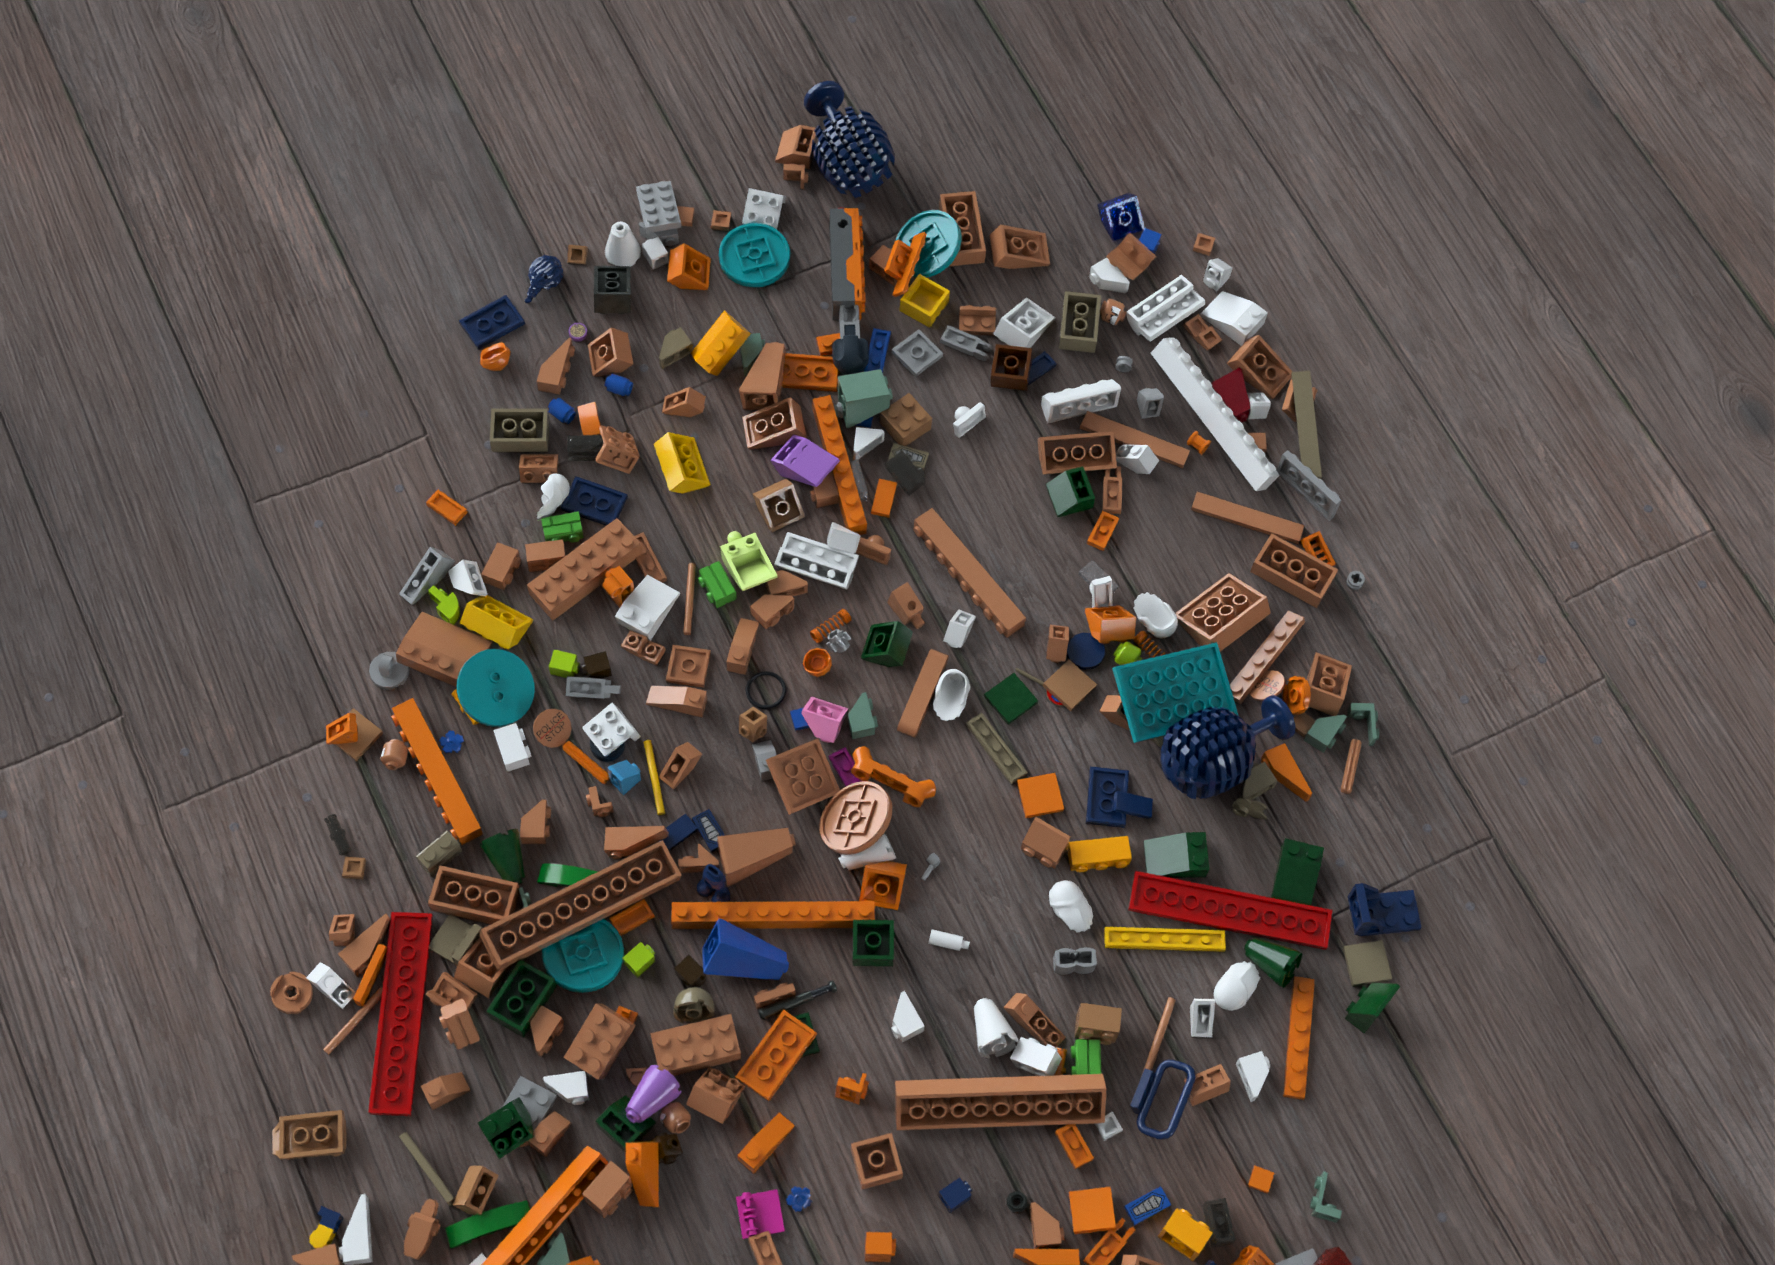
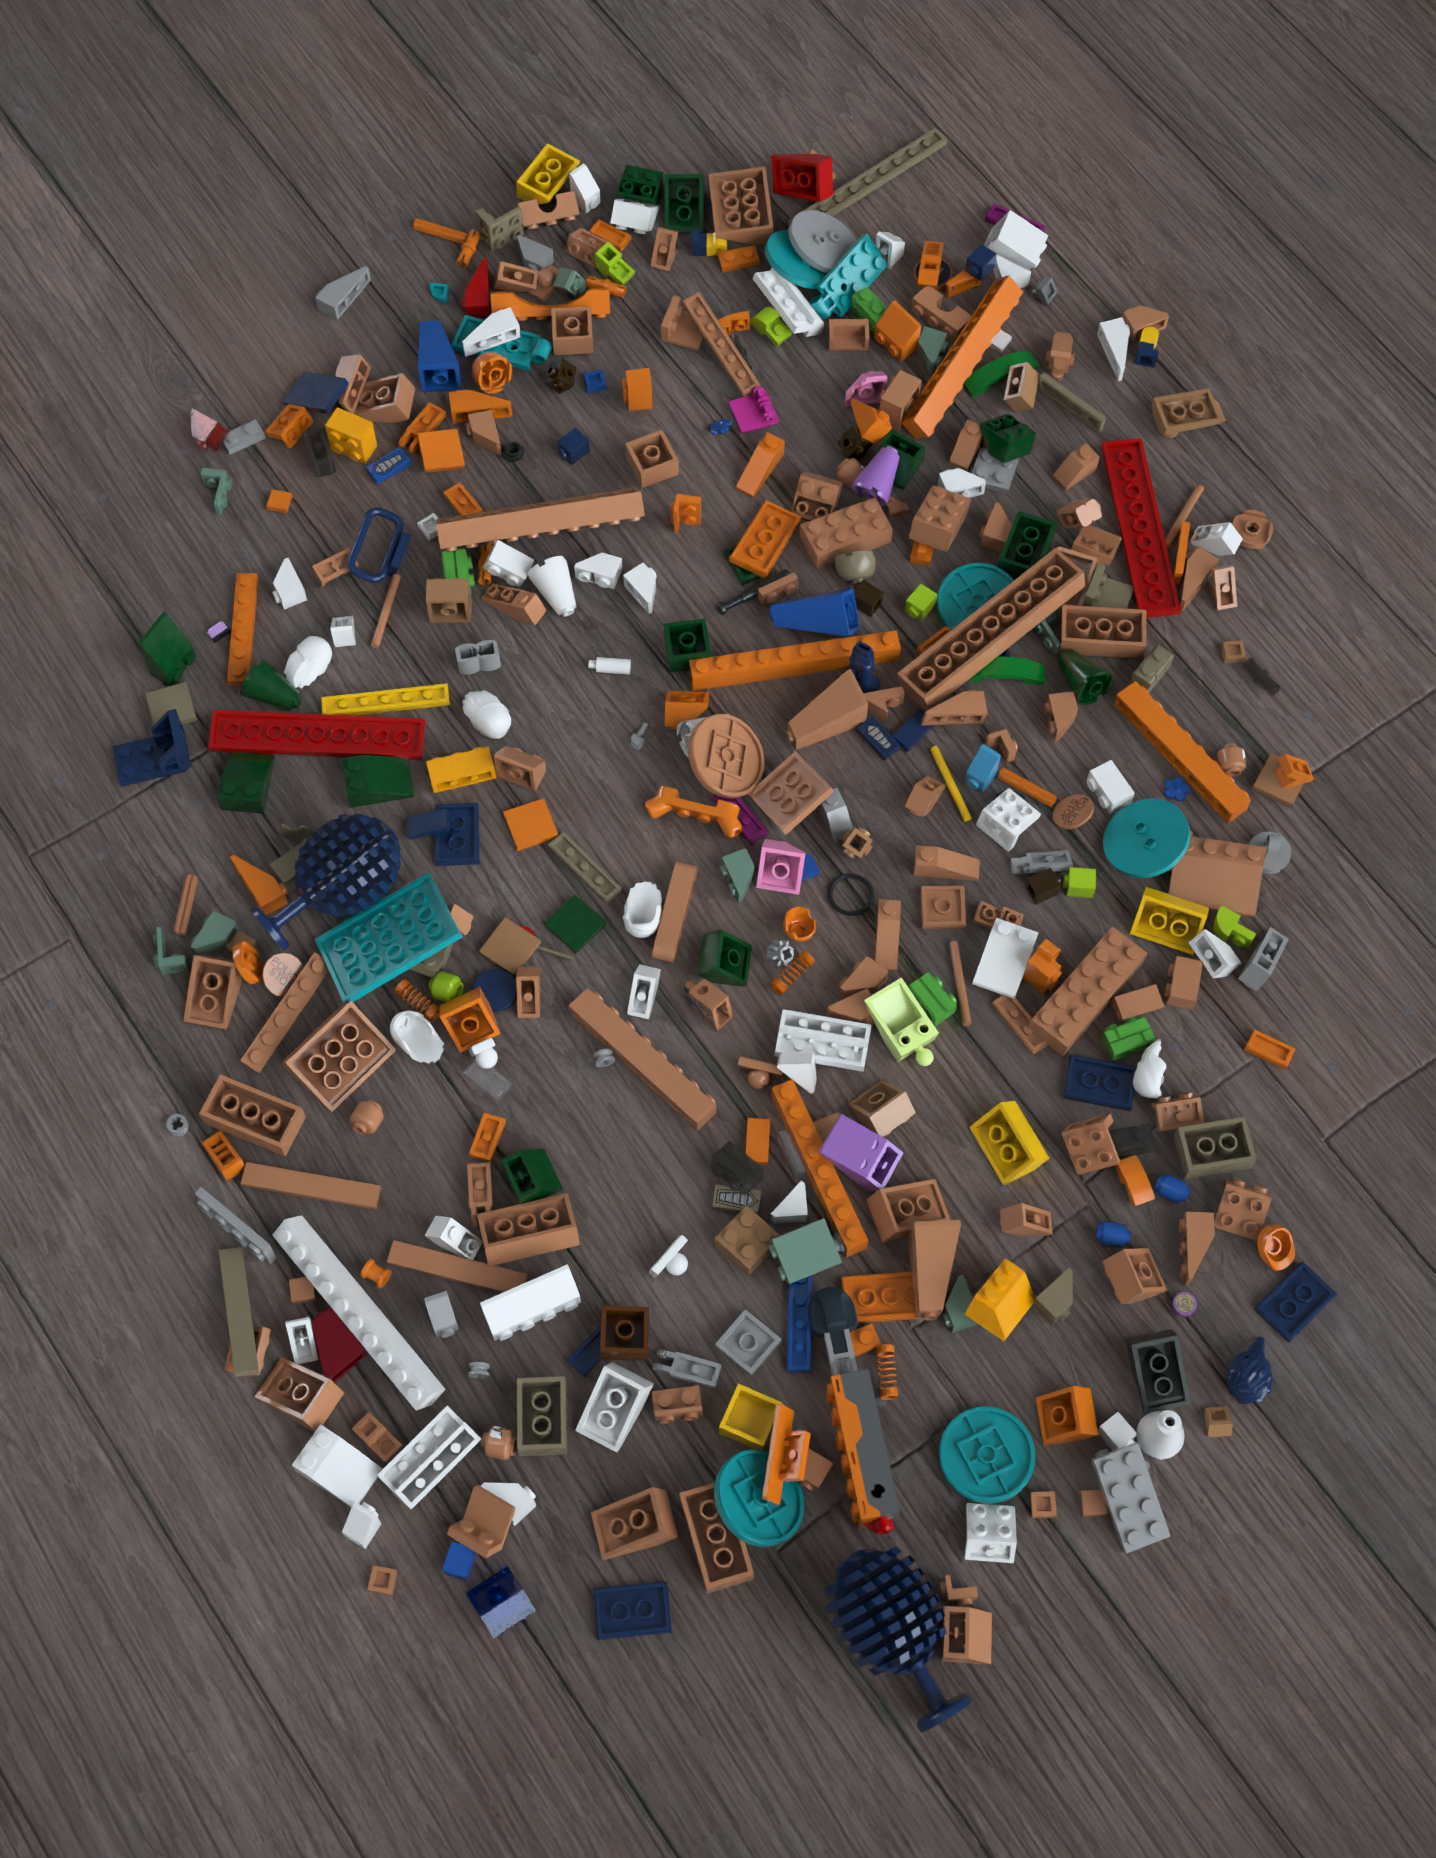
camera: 175 degrees right, 0 degrees up
(508, 389) = (1242, 1208): none -> nougat bracket
(636, 1218) = (867, 388): none -> bright pink slope
(817, 307) = (886, 1351): none -> orange piece
(945, 1044) = (600, 570): none -> white slope
(1001, 578) = (604, 1057): none -> light grey bush
(1027, 201) = (632, 1610): none -> dark blue tile
(1200, 559) = (366, 1117): none -> nougat head
(1323, 1037) = (218, 631): none -> lavender piece

